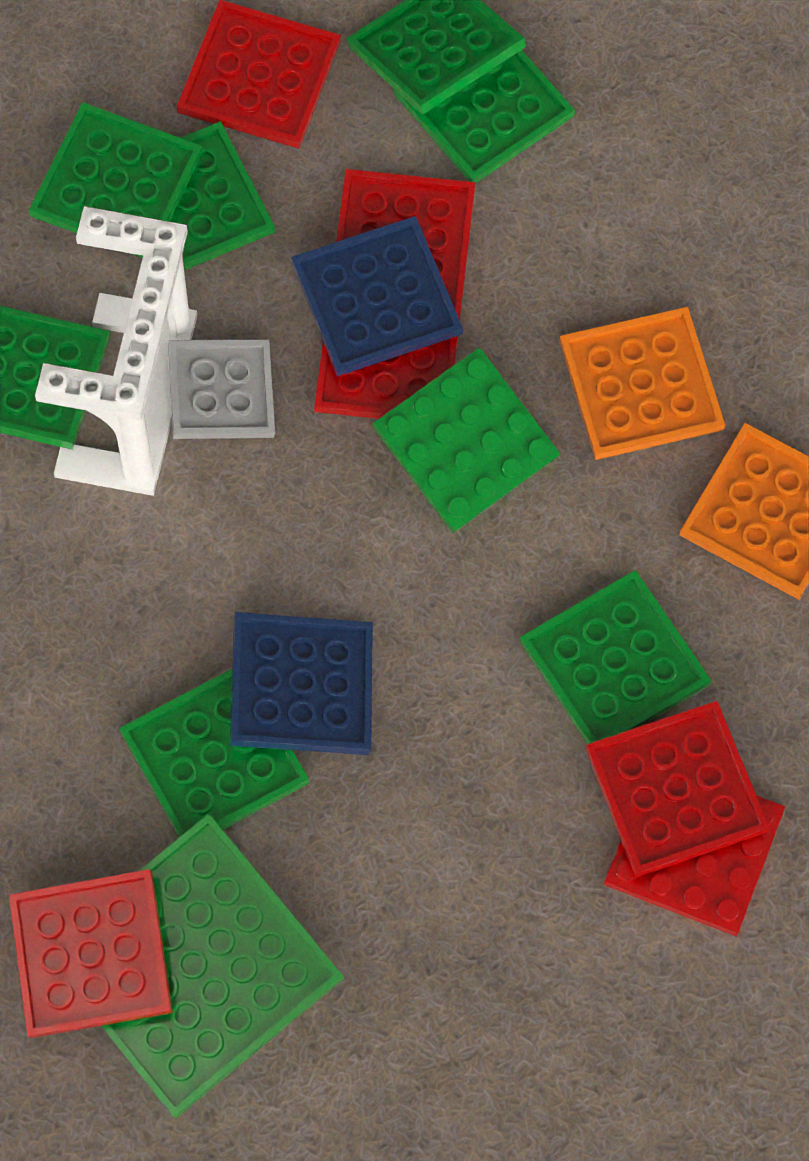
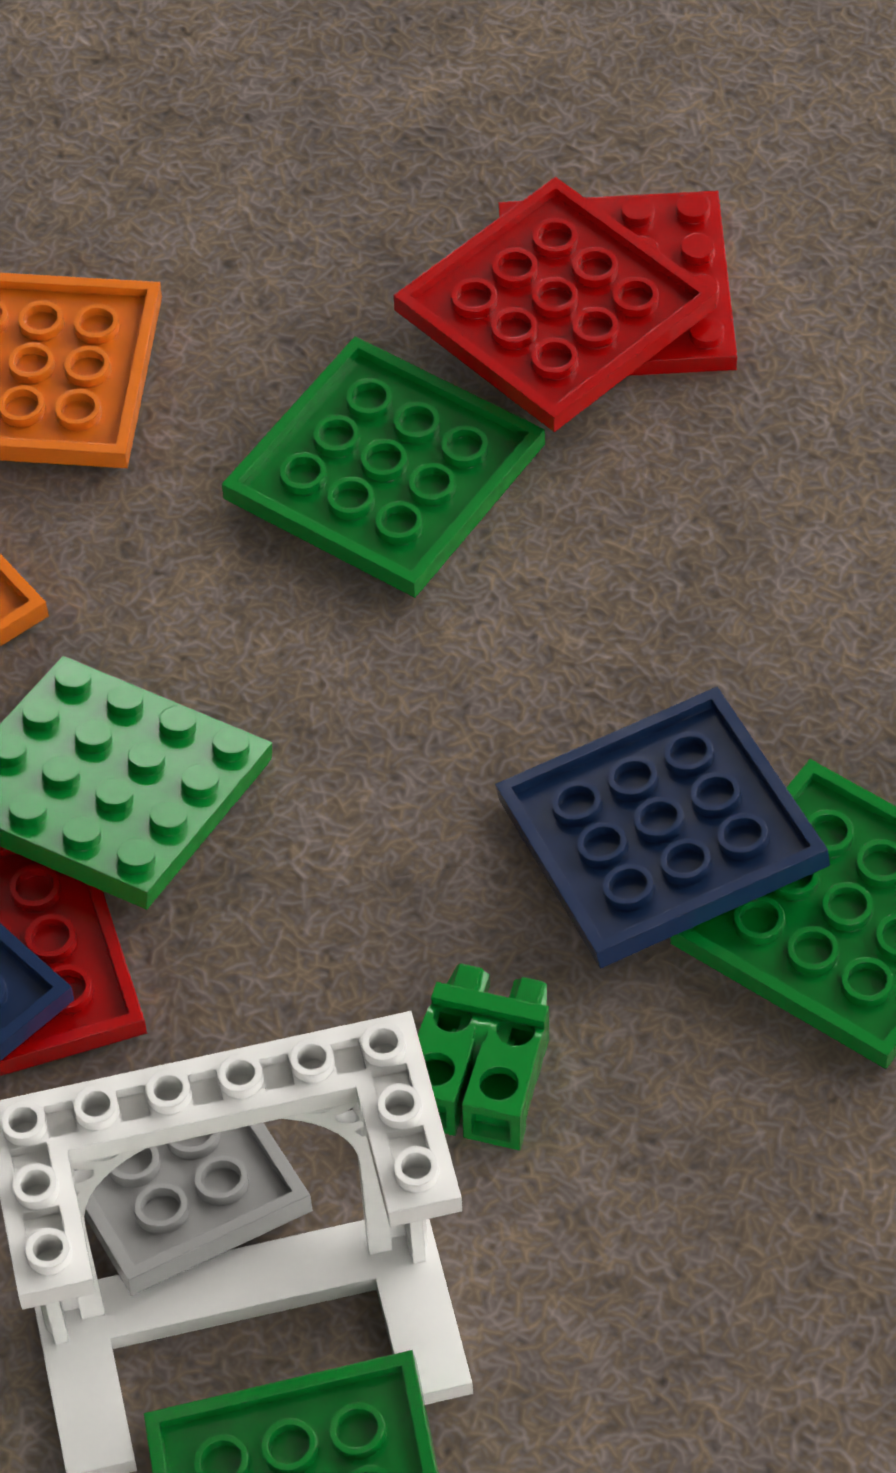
camera: 110 degrees left, 15 degrees down
(218, 545) = (496, 1039): none -> green hips

